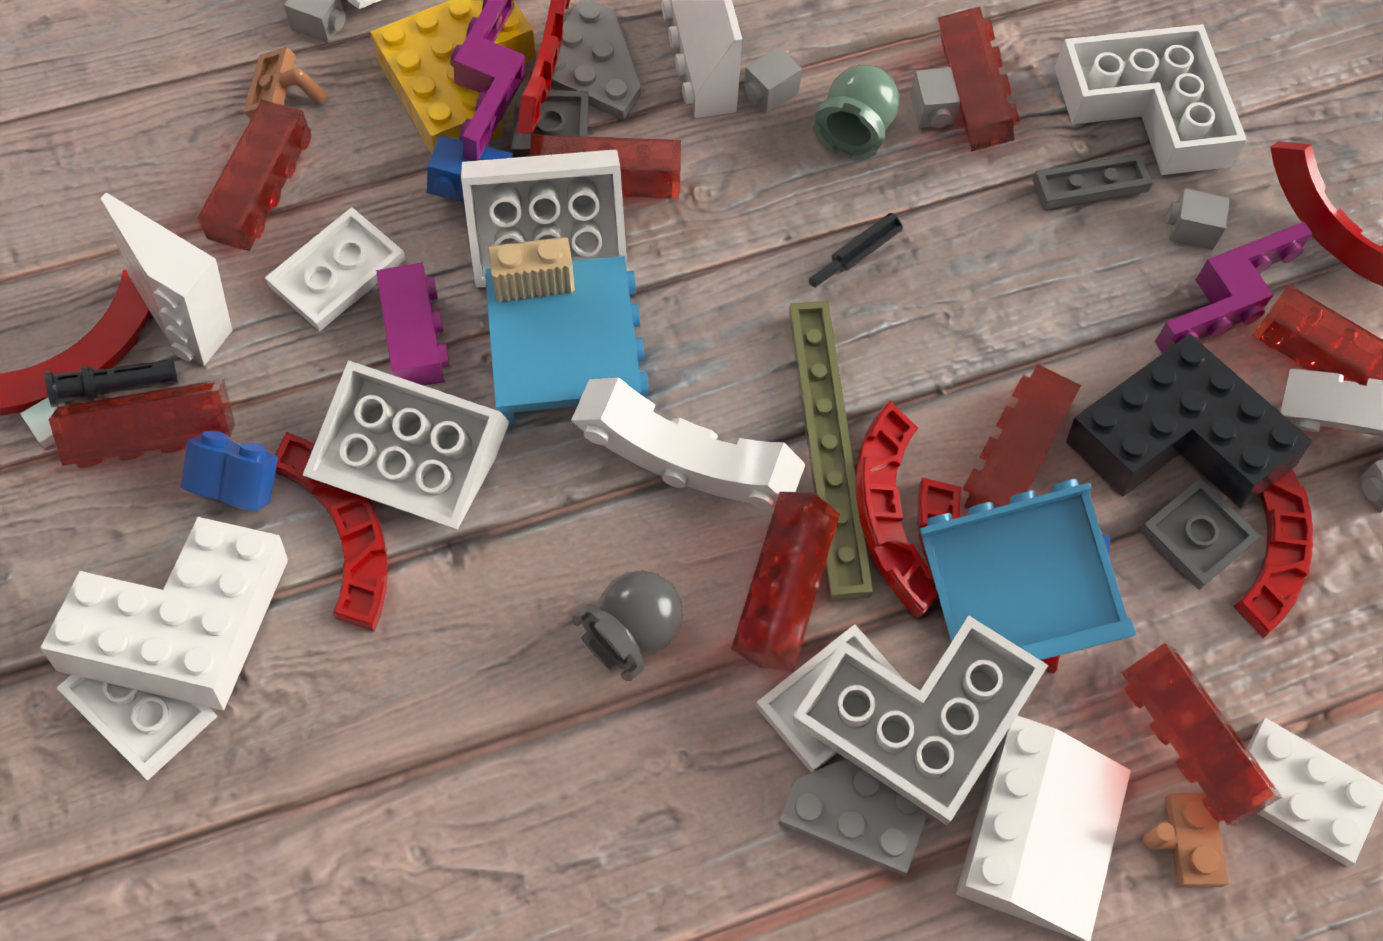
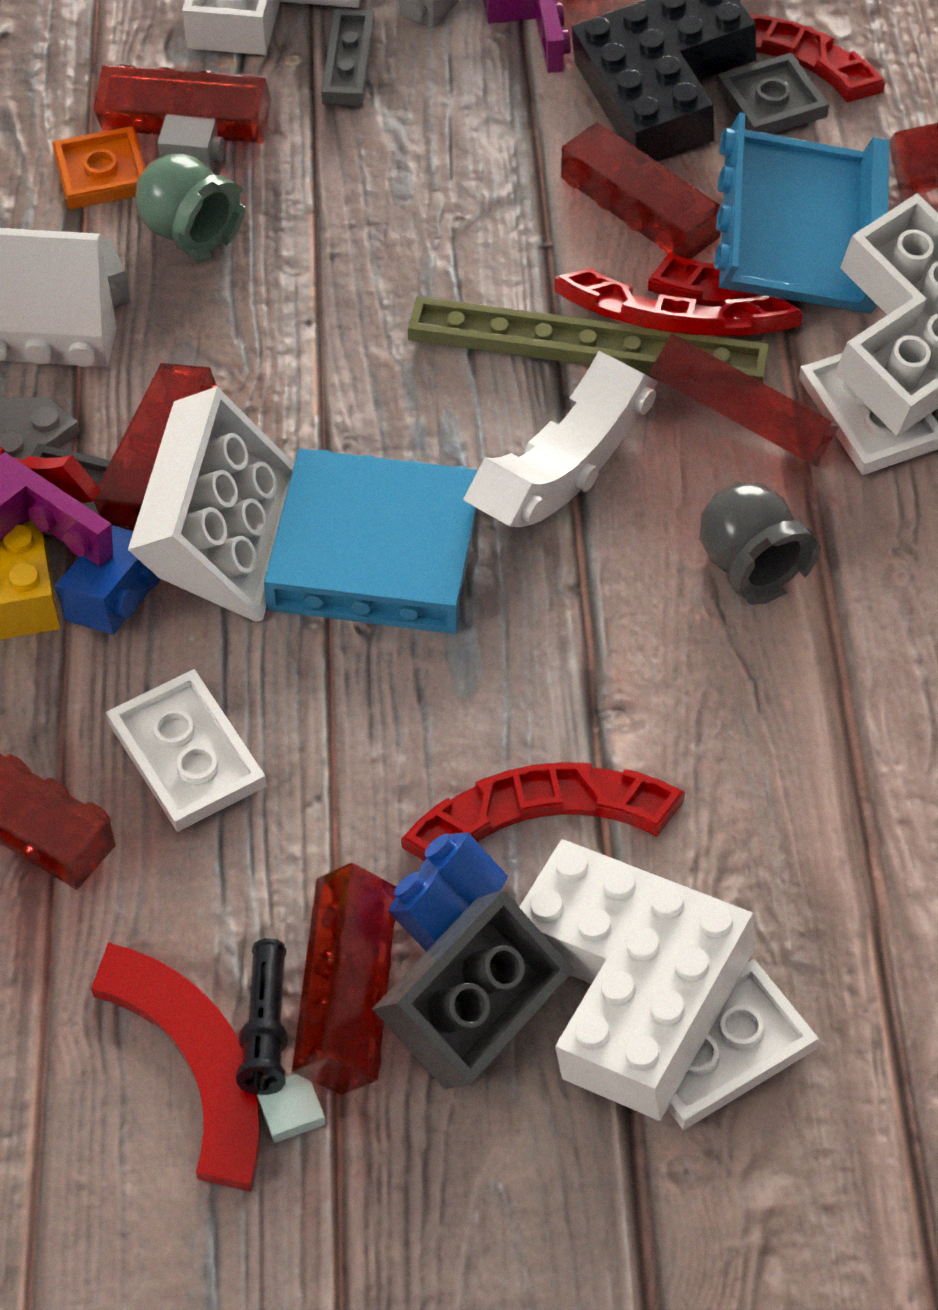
camera: 70 degrees left, 10 degrees down
(131, 505) = (473, 990): none -> dark grey brick
(174, 281) = (190, 873): white slope -> none
(406, 445) = (469, 708): white slope -> none
(412, 324) = (301, 682): magenta brick -> none
(531, 269) = (298, 521): tan brick -> none
(859, 248) = (352, 259): black axle -> none
(896, 47) = (99, 166): none -> orange tile

